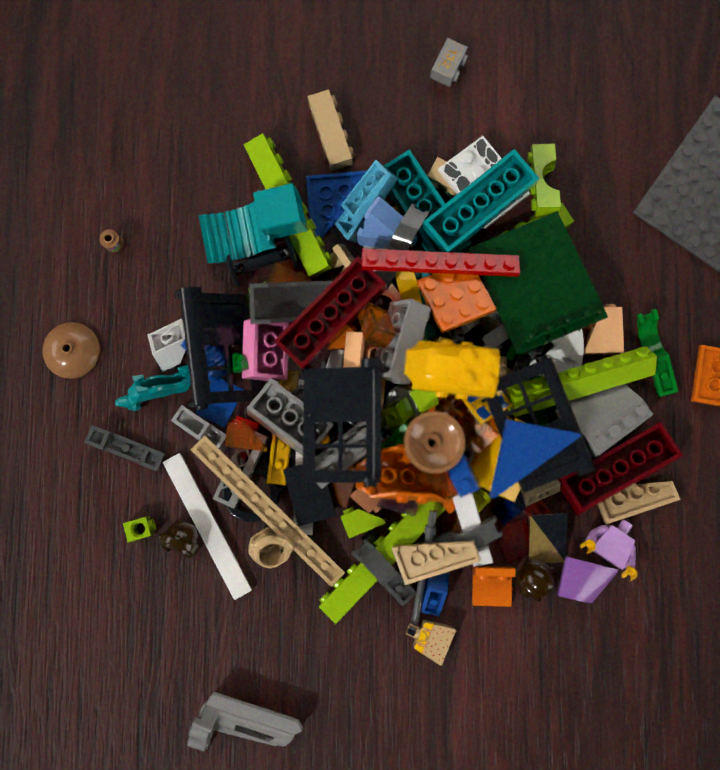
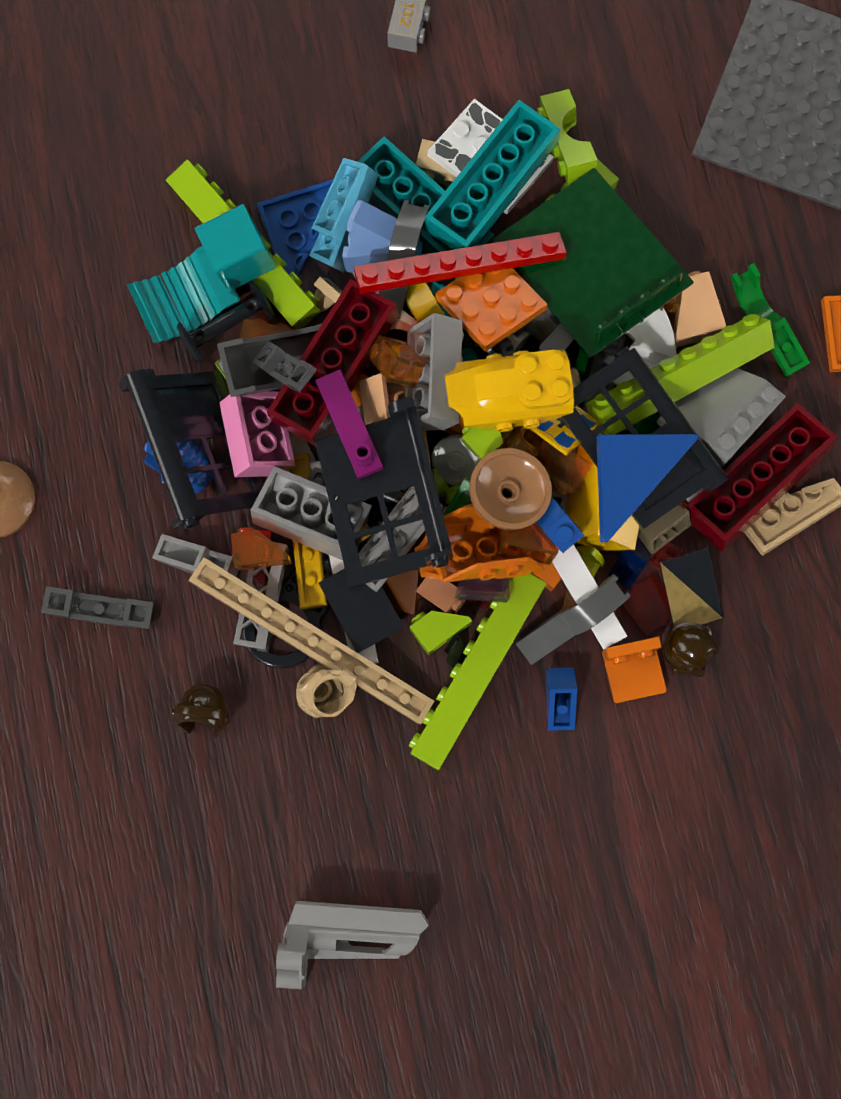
camera: 15 degrees left, 5 degrees down
(111, 241) = (18, 342): medium nougat brick -> none
(131, 528) = (131, 710): lime brick -> none
(154, 387) = (119, 518): teal animal -> none
(166, 345) = (126, 459): white slope -> none
(207, 526) = (234, 686): white tile -> none
(220, 412) = (213, 529): blue sticker -> none
(239, 363) = (227, 457): green tile -> none
(294, 312) = (284, 367): none -> dark grey slope
(329, 129) = (274, 138): tan brick -> none
(330, 365) = (349, 424): none -> magenta piece
(384, 572) = (487, 685): dark grey piece -> none
(397, 412) = (452, 471): lime brick -> none
(430, 531) = (534, 615): dark grey bar -> none
(431, 559) = (544, 650): tan wing -> none
(432, 639) = (572, 761): tan torso -> none
(583, 579) = (753, 632): medium lavender slope -> none
(614, 546) = (780, 580): lavender torso -> none

